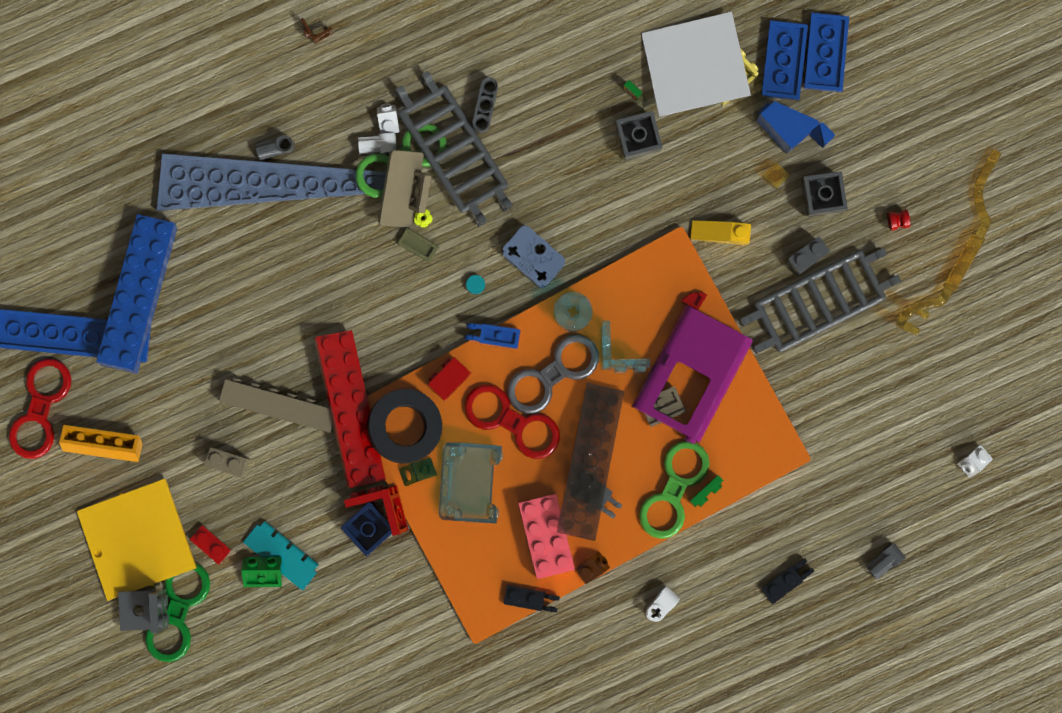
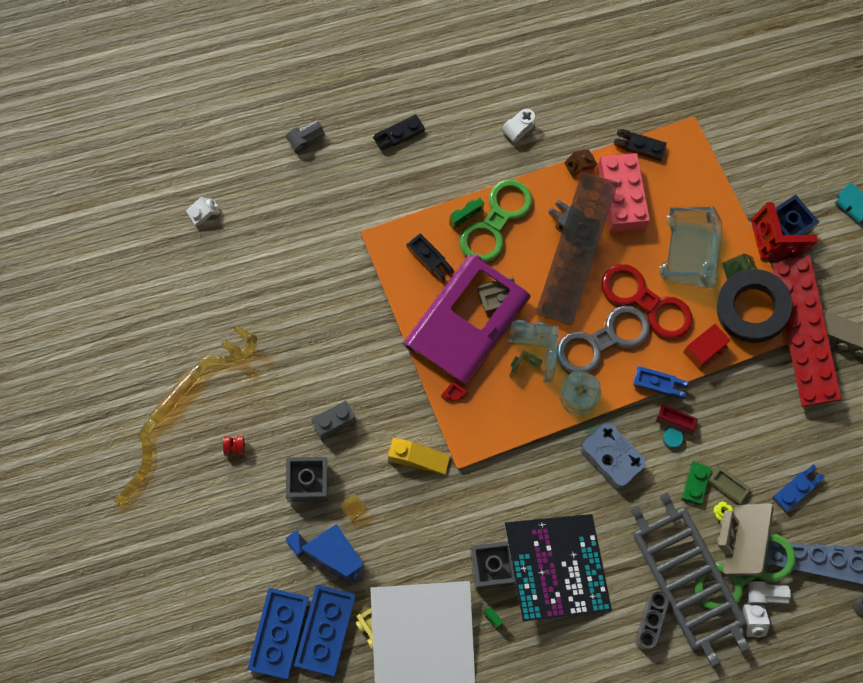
camera: 175 degrees left, 15 degrees down
(351, 249) = (796, 489): none -> blue hinge
(450, 243) = (696, 483): none -> green plate
(473, 302) = (677, 420): none -> dark red tile
(577, 142) = (557, 567): none -> black sticker
(637, 337) = (526, 357): none -> bracket
(738, 439) = (429, 256): none -> black hinge
(830, 321) = (274, 409): dark grey bar -> none

